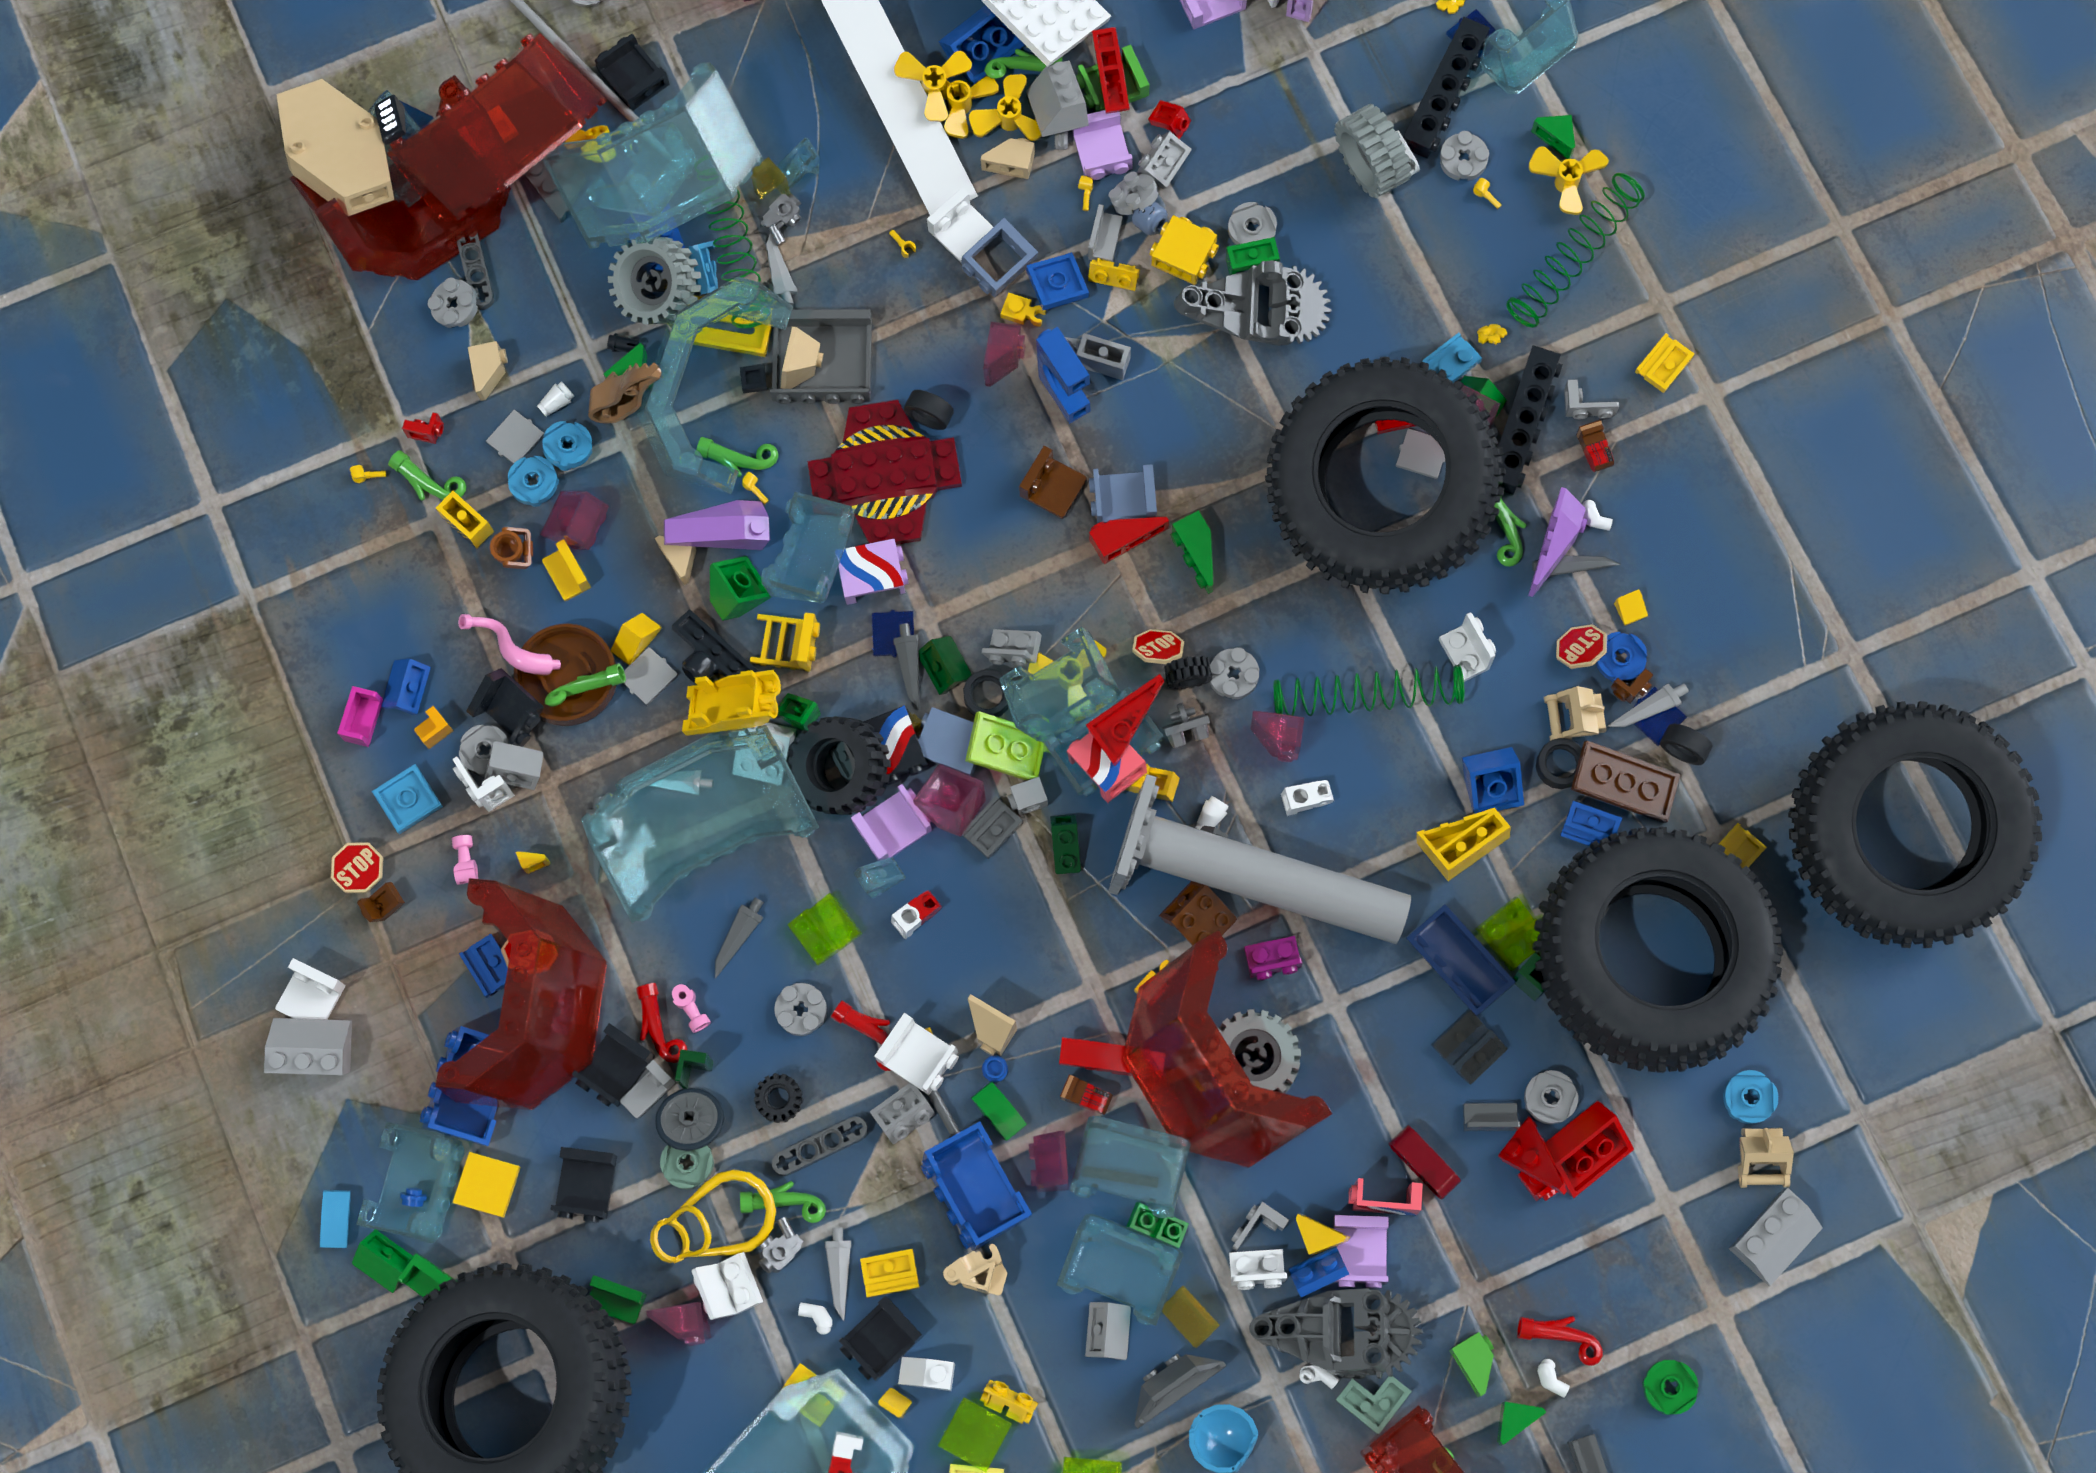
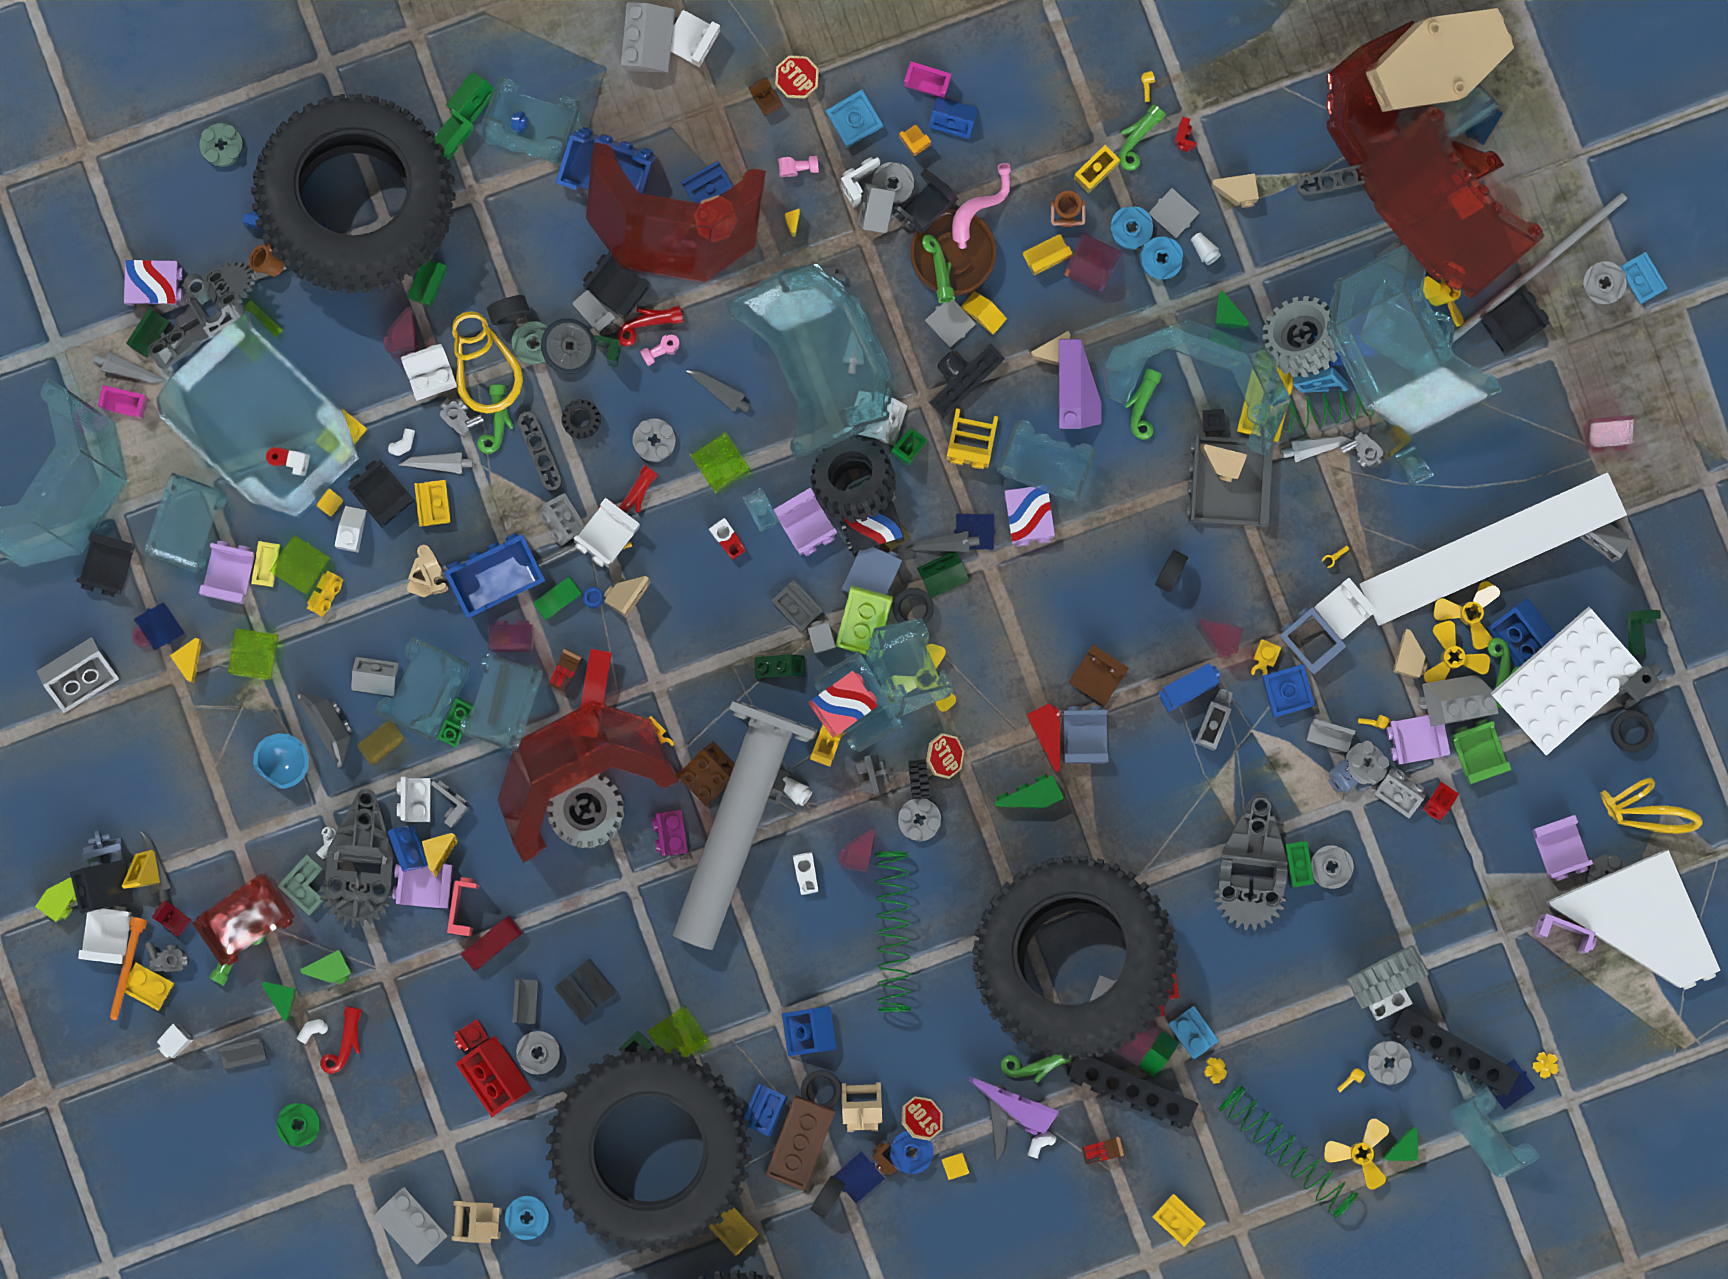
camera: 85 degrees right, 10 degrees up
(335, 1219) = (507, 59): dark azure slope -> none
(391, 119) = (1471, 103): black slope -> none
(441, 300) = (1300, 172): light grey plate -> none
(486, 1184) = (526, 181): yellow tile -> none
(585, 1184) = (520, 260): black panel -> none
(621, 394) = (1198, 304): medium nougat animal -> none
(622, 344) = (1253, 307): black pin -> none
(647, 1193) = (508, 310): none -> black tyre
(732, 702) = (915, 392): yellow piece -> none
(735, 587) = (1022, 398): green slope -> none
(749, 482) = (1118, 413): yellow hand -> none
(886, 472) = (1119, 530): dark red plate -> none
(910, 68) = (1495, 609): yellow piece -> none
(951, 799) = (821, 571): clear pink slope -> none
(1013, 647) = (953, 632): light grey bracket -> none
(1105, 273) = (1296, 731): yellow hinge -> none
(1110, 70) = (1487, 750): red slope -> none
(1119, 723) = (870, 715): red wing -> none
(1184, 249) = (1311, 804): yellow brick -> none
(1460, 960) = (656, 988): dark blue slope -> none
(1463, 842) = (756, 1000): yellow wedge -> none
(1469, 647) = (925, 1019): white bracket -> none
(1529, 1155) = (489, 1028): red wing -> none
(1579, 410) = (1151, 1136): light grey bracket -> none
(1656, 703) = (870, 1182): light grey bar -> none

